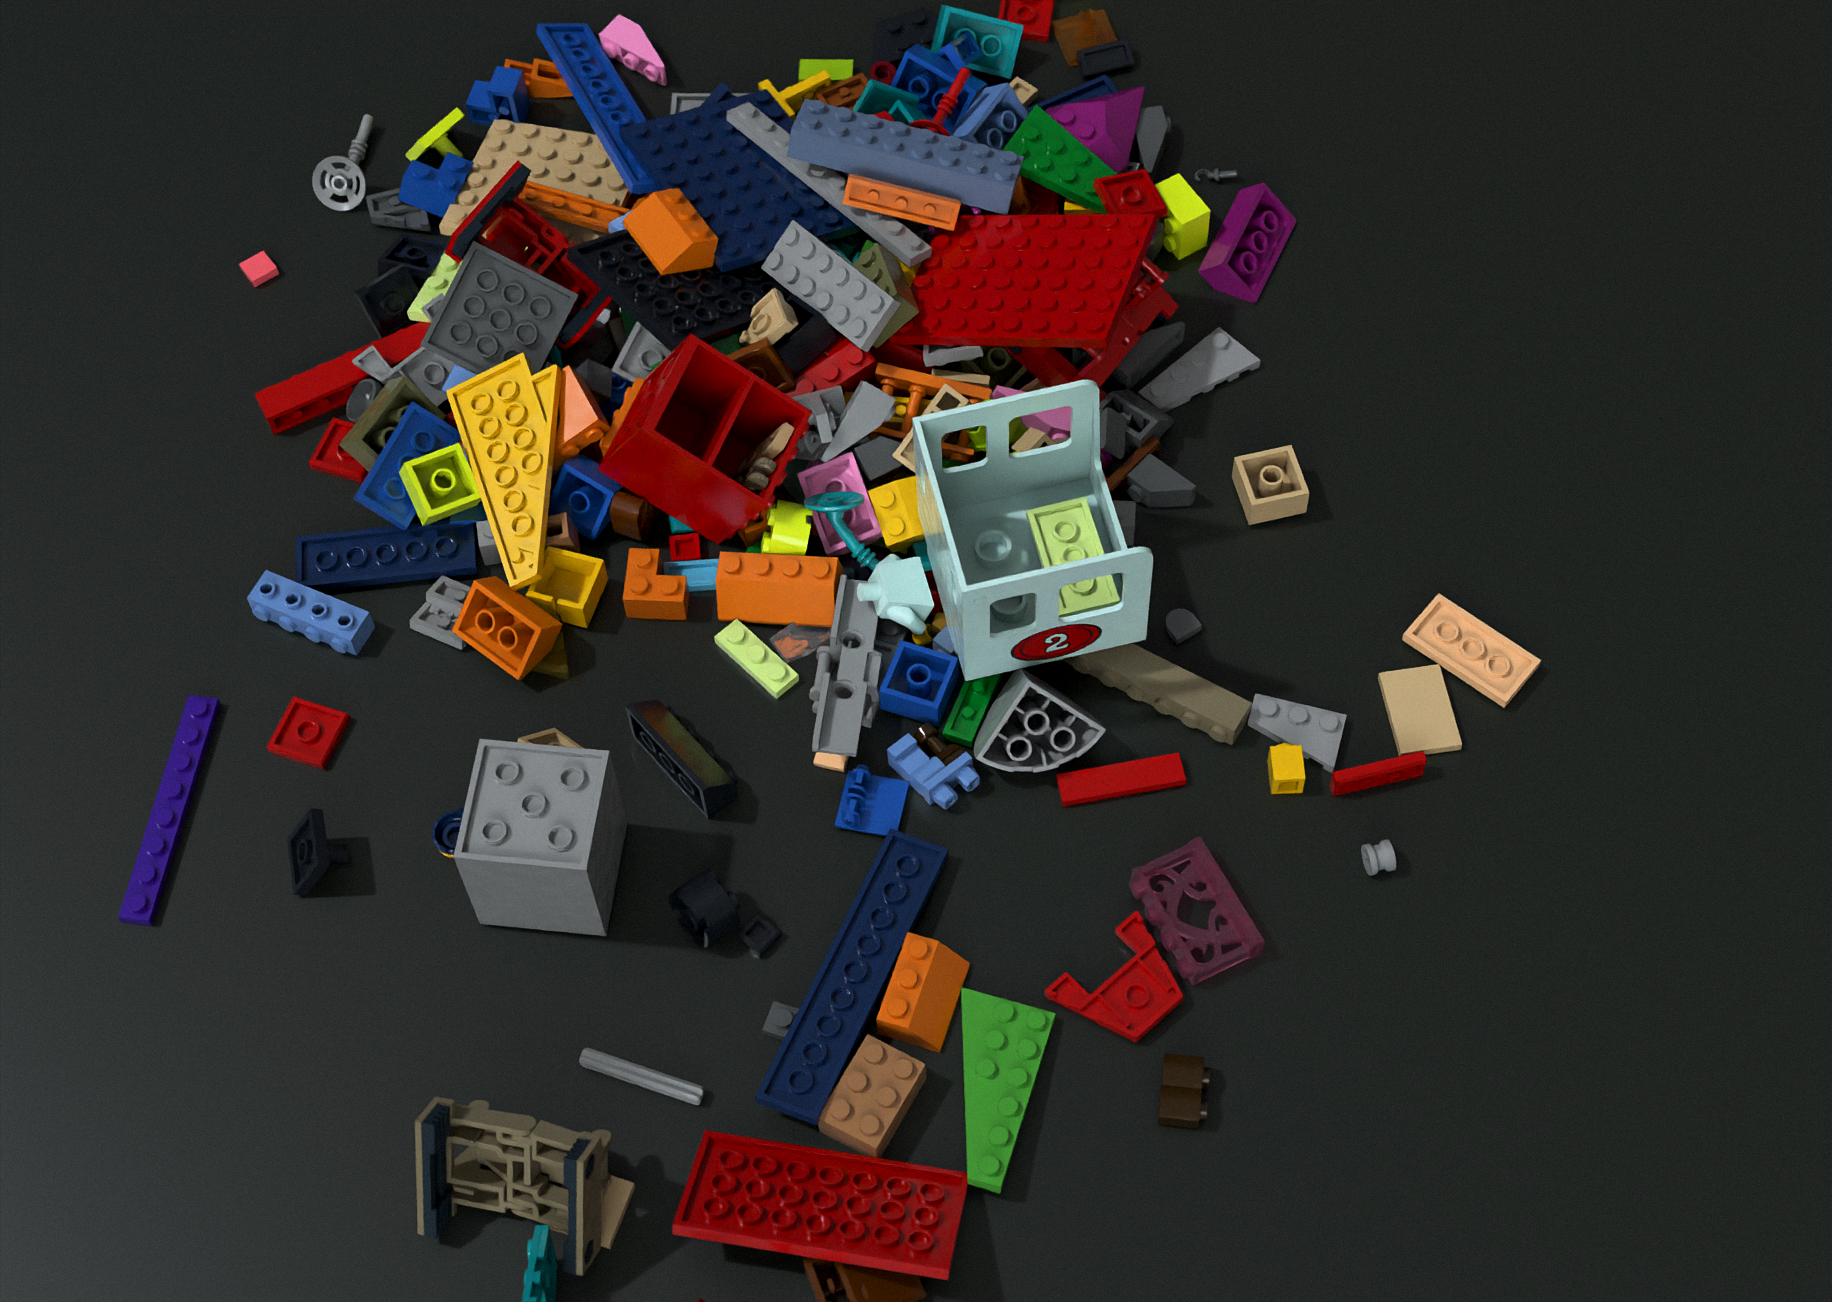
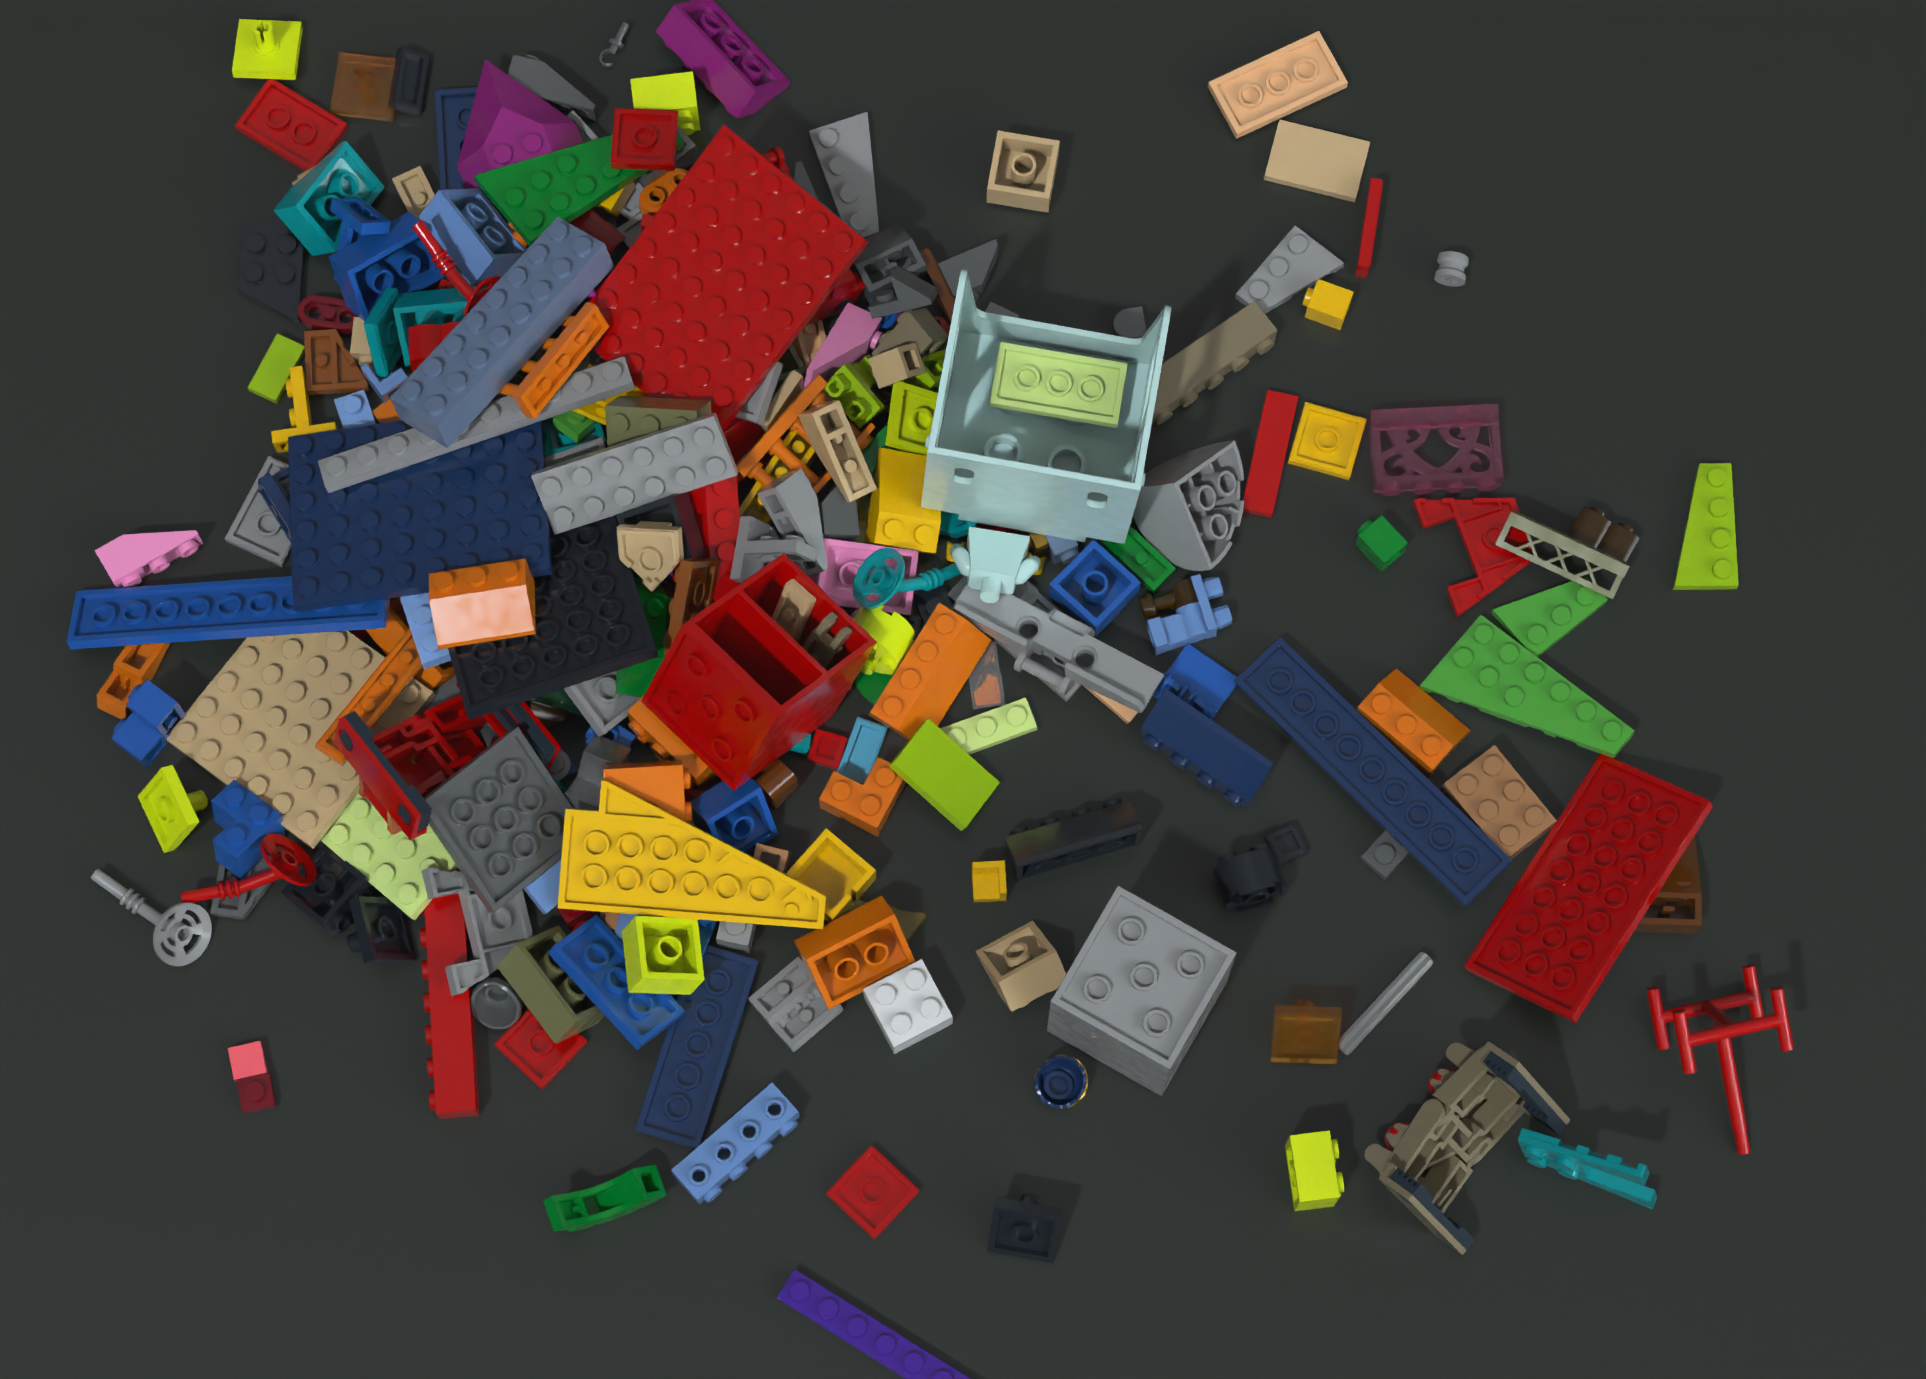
camera: 70 degrees left, 15 degrees up
(228, 542) = (605, 1201): none -> green arch
(235, 284) = (256, 1093): none -> dark red plate
(415, 216) = (282, 866): none -> red dish
(448, 1064) = (1313, 1170): none -> neon yellow brick
(479, 690) = (908, 1006): none -> white brick
(579, 1011) = (1305, 1034): none -> clear orange tile
(614, 711) = (989, 881): none -> yellow panel
(695, 633) = (944, 774): none -> lime tile
(811, 829) = (1205, 749): none -> dark blue slope
(1080, 899) = (1380, 542): none -> green brick
(1087, 1077) = (1548, 615): none -> bright green wing
(1153, 1054) = (1565, 542): none -> olive fence
(1157, 821) = (1327, 441): none -> yellow tile
(1238, 1193) = (1709, 539): none -> lime wing

